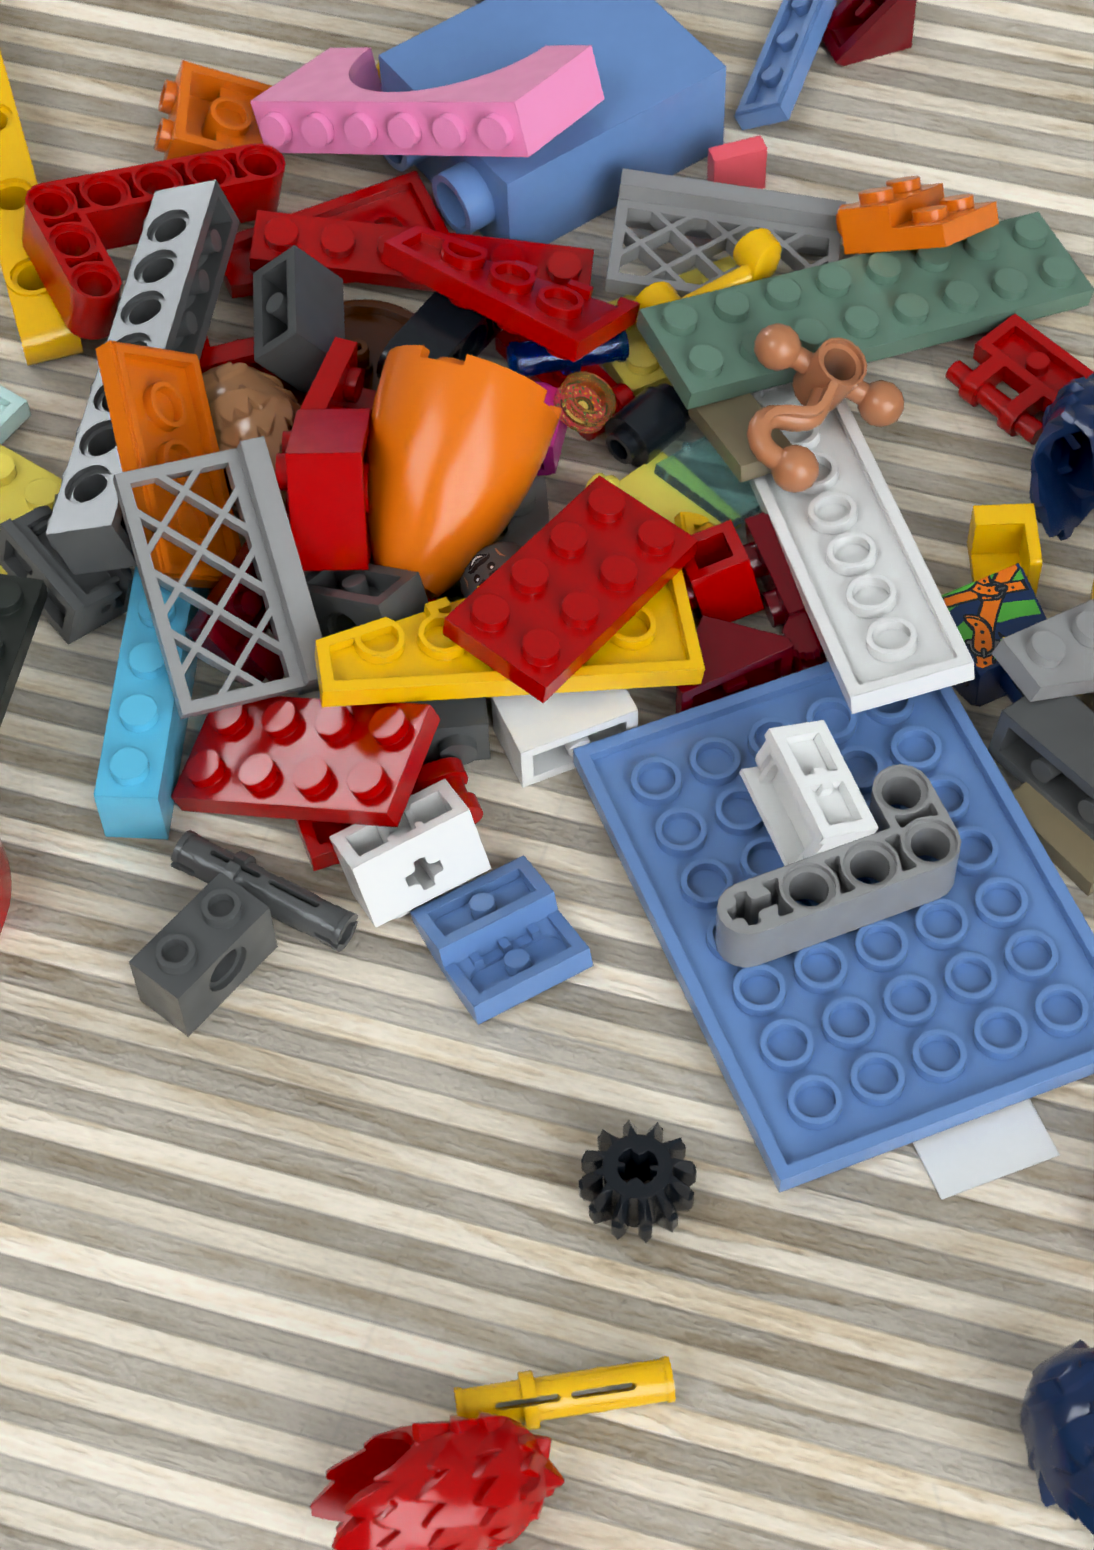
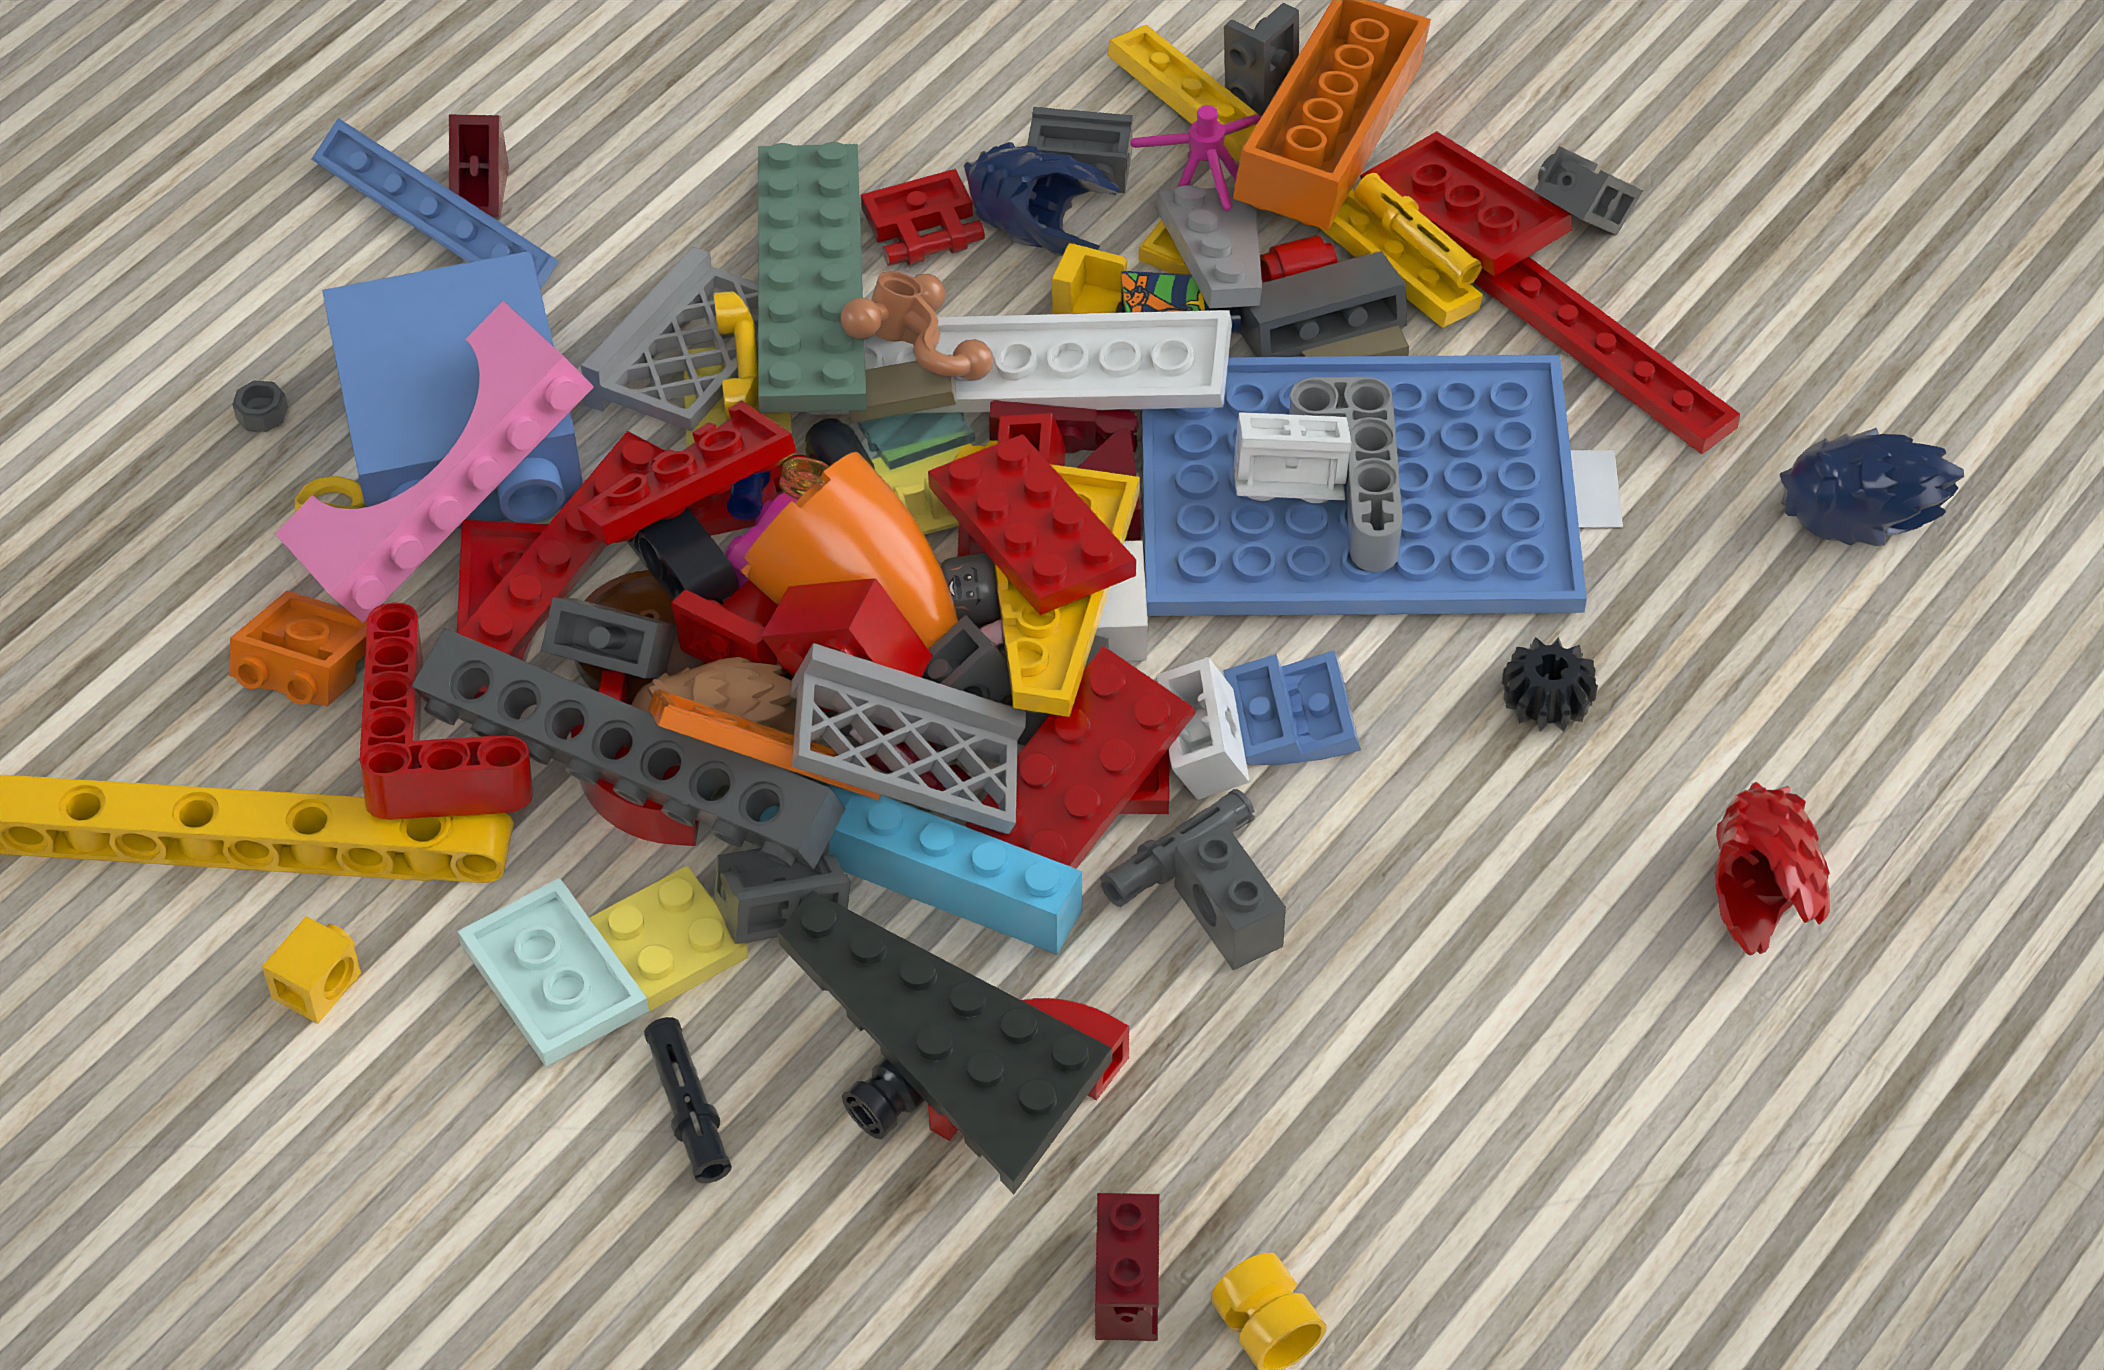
camera: 70 degrees left, 5 degrees down
(650, 1381) = (1701, 801): yellow pin -> none
(739, 163) = (590, 311): coral tile -> none
(910, 218) = (747, 216): orange plate -> none

